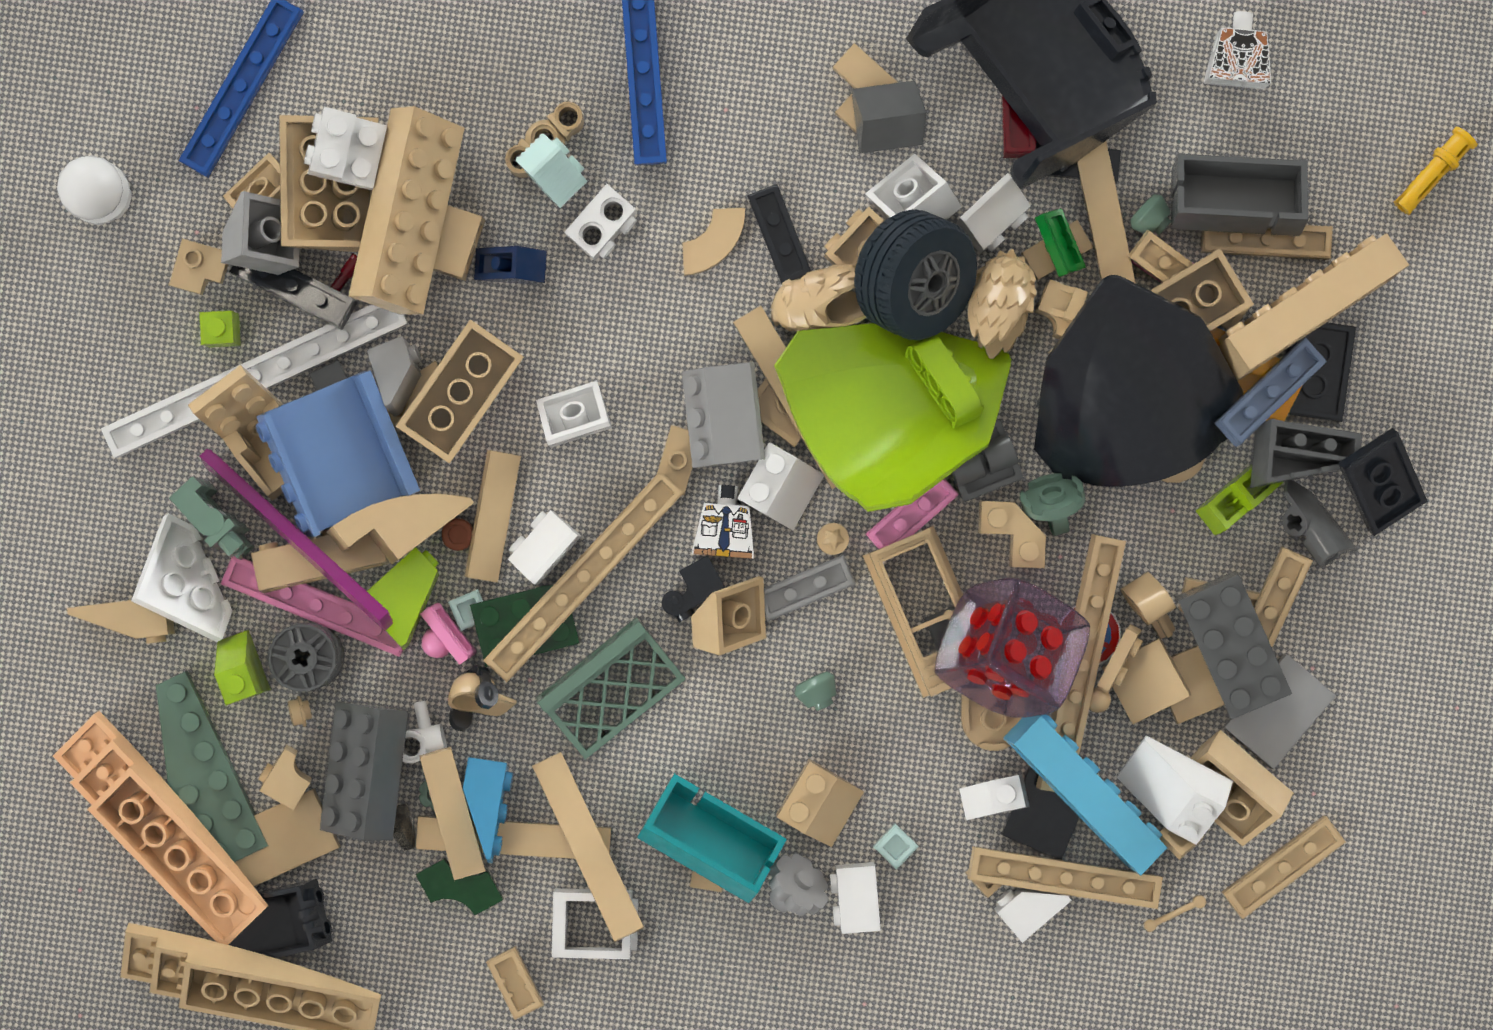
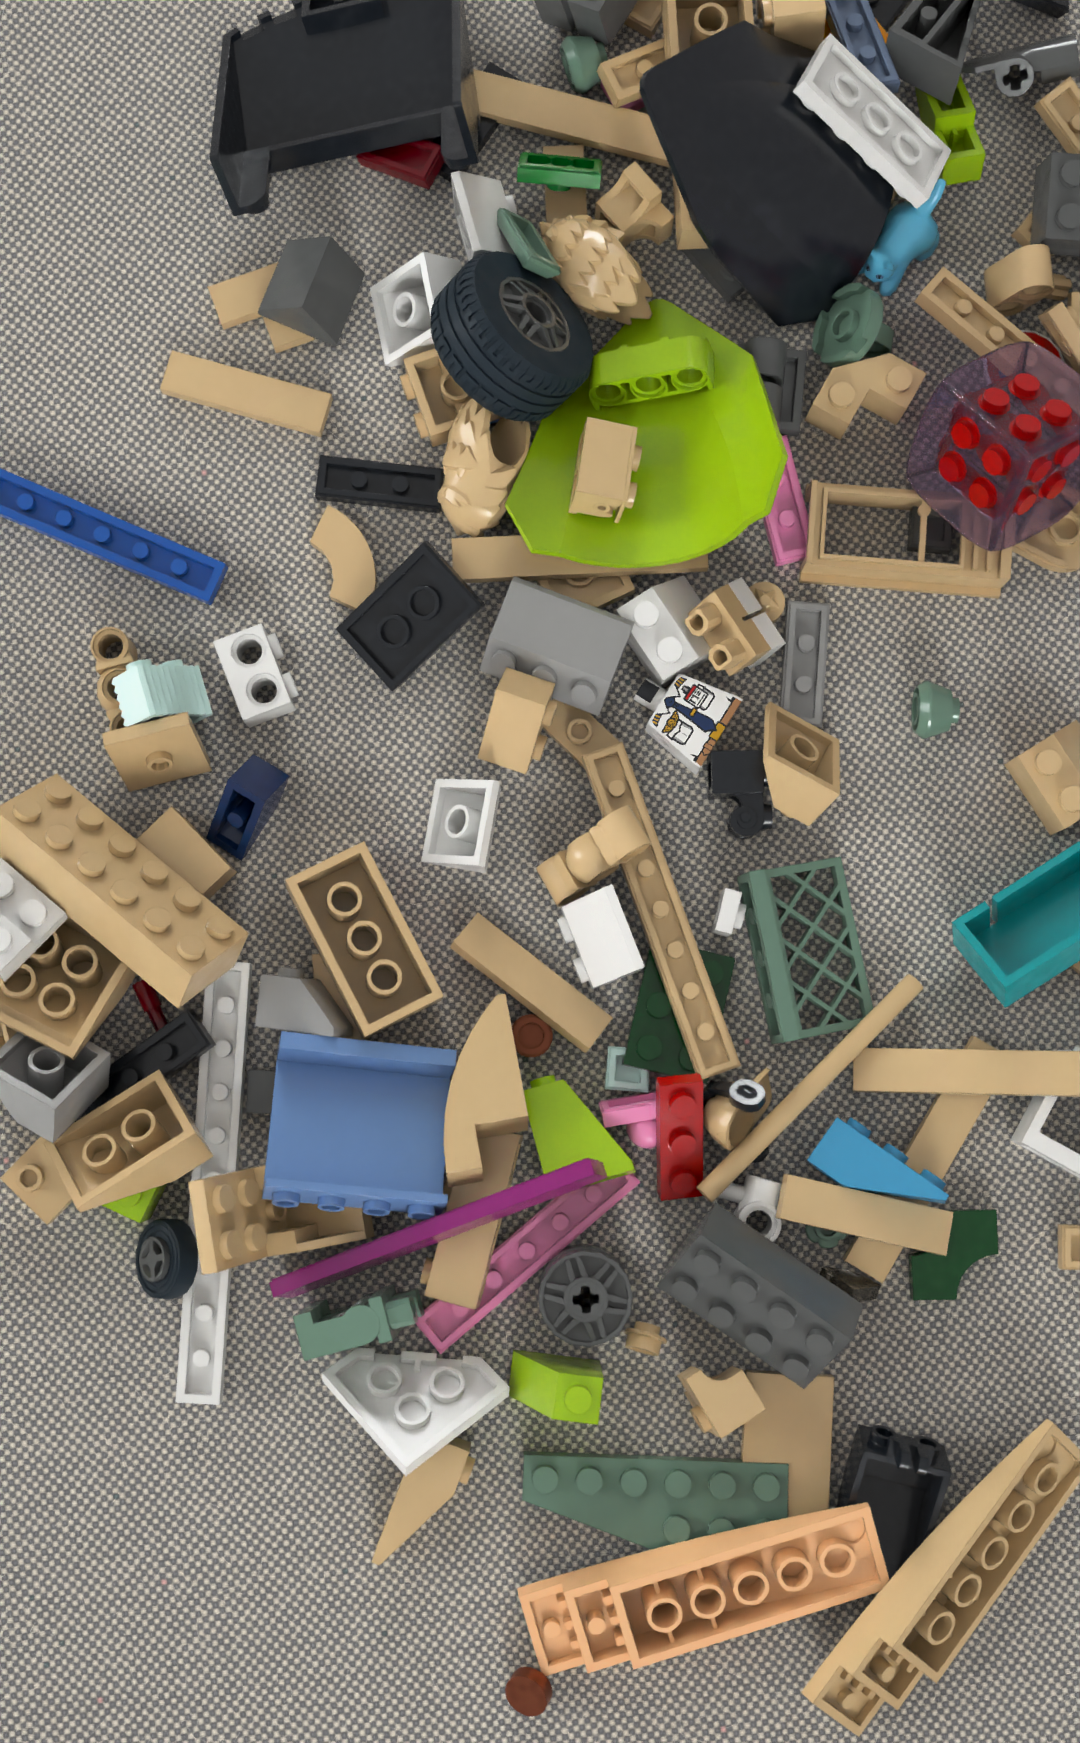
camera: 65 degrees left, 5 degrees down
(39, 751) = (528, 1691): none -> copper tile
(188, 373) = (166, 1258): none -> black wheel
(246, 311) = (128, 1145): none -> tan slope
(440, 666) = (679, 1136): none -> red plate
(513, 187) = (157, 751): none -> tan plate
(518, 736) = (809, 1088): none -> tan piece
(594, 513) = (594, 856): none -> tan piece
(606, 624) = (729, 913): none -> white plate
(659, 415) = (516, 721): none -> tan brick
(694, 305) = (410, 616): none -> black tile
(794, 109) = (246, 393): none -> tan tile
(798, 516) = (732, 631): none -> tan hips
(857, 384) = (604, 469): none -> tan hinge
(988, 250) = (527, 244): none -> sand green tile
(1143, 504) = (904, 237): none -> medium azure animal
(1194, 441) = (872, 121): none -> white plate

